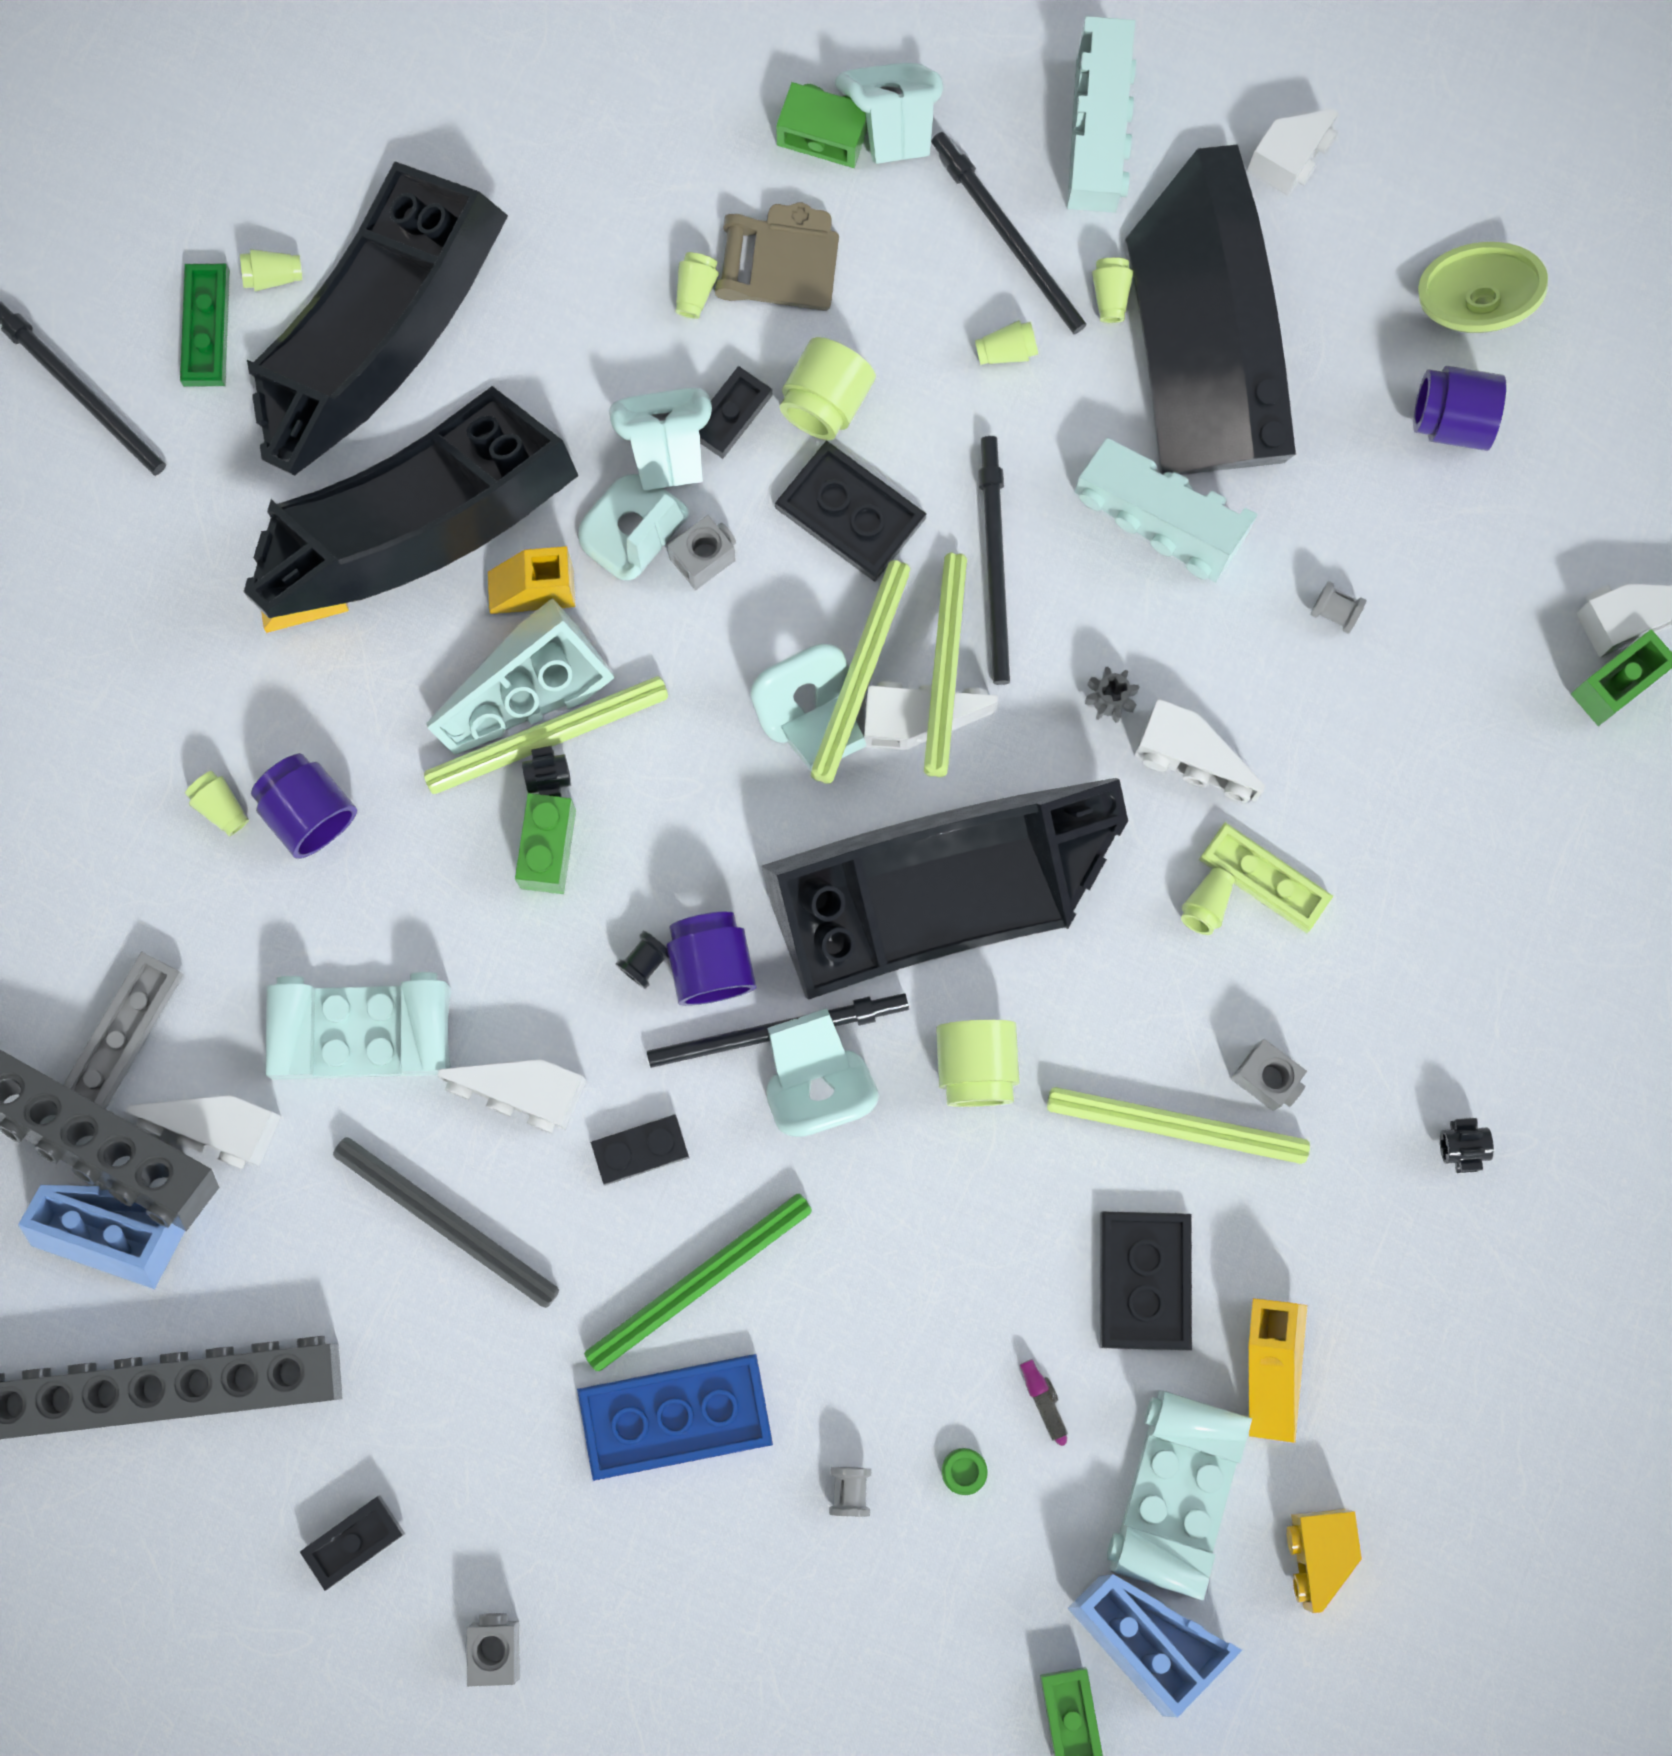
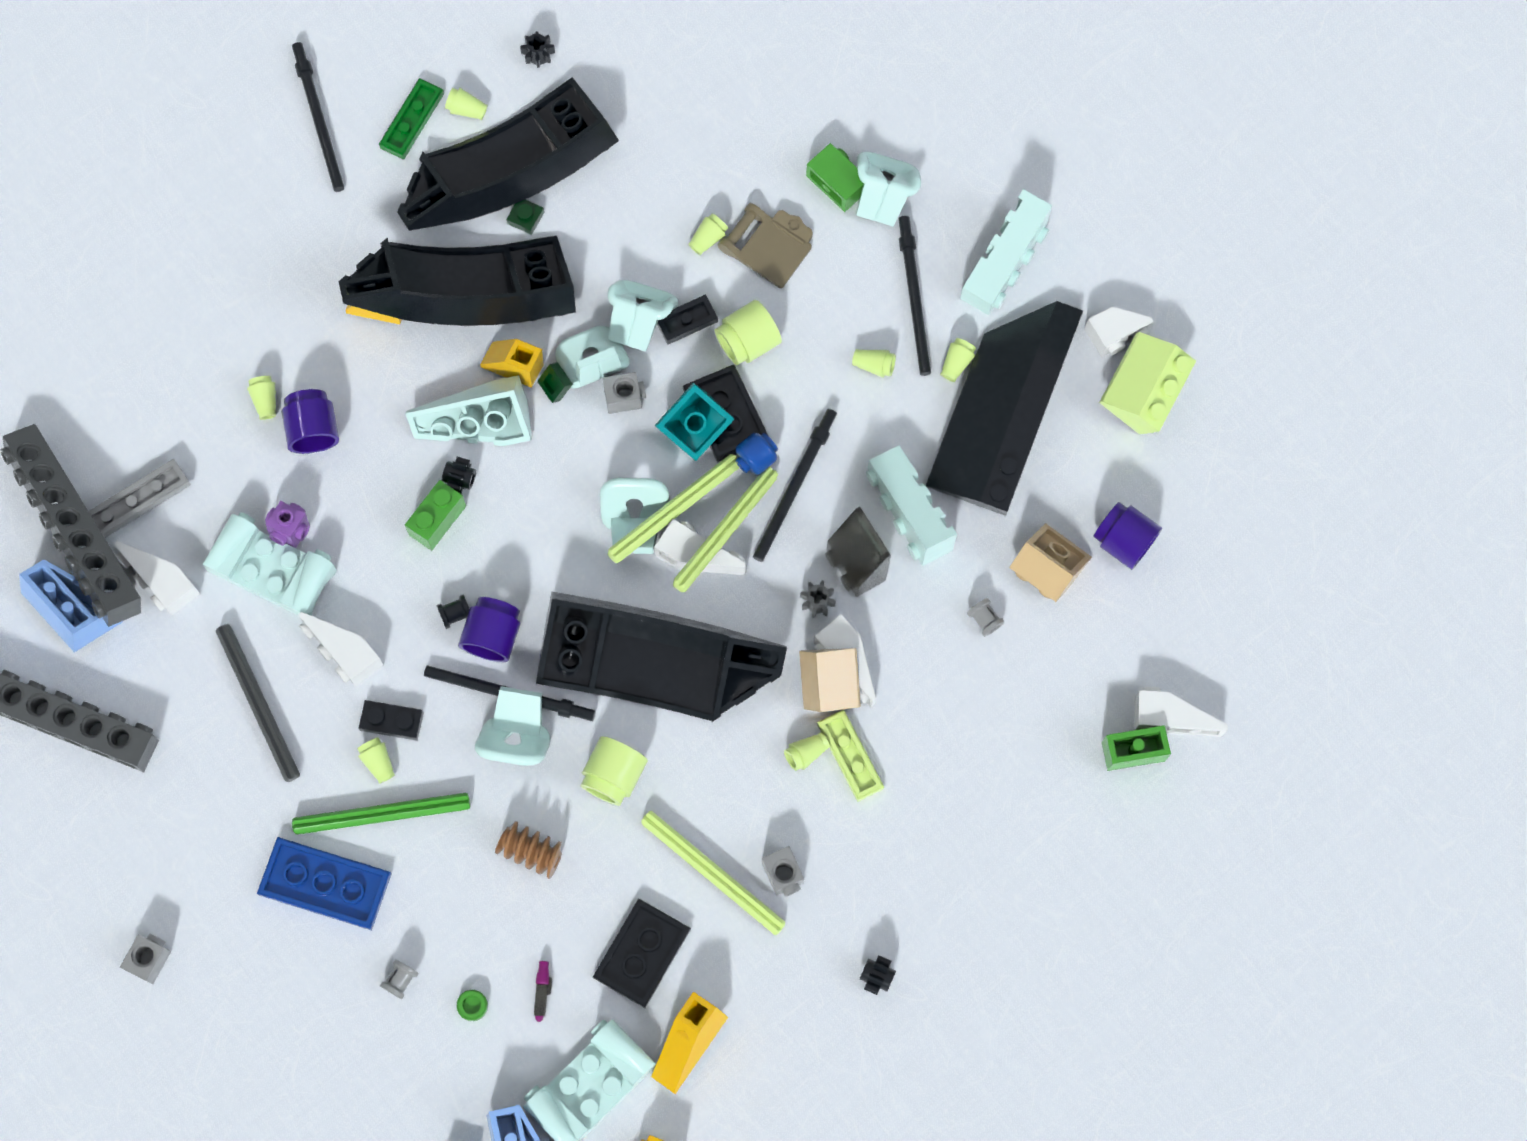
camera: 30 degrees right, 5 degrees down
(321, 136) = (534, 42): none -> black gear
(352, 1543) = (103, 854): black plate -> none
(357, 972) = (287, 524): none -> medium lavender brick
(435, 381) = (525, 216): none -> dark green plate
(545, 734) = (474, 453): yellowish green axle -> none
(604, 583) = (554, 382): none -> dark green plate
(652, 1213) = (376, 759): none -> yellowish green cone
(824, 541) = (694, 421): none -> teal slope
(926, 543) = (756, 453): none -> blue head
(927, 1223) = (531, 849): none -> medium nougat piece
(1139, 605) = (858, 554): none -> clear smoke slope
(1190, 793) = (830, 679): none -> slope
(1376, 197) = (1147, 383): none -> yellowish green slope
(1380, 495) = (1050, 562): none -> tan slope
(1483, 287) = (1183, 469): yellowish green dish -> none

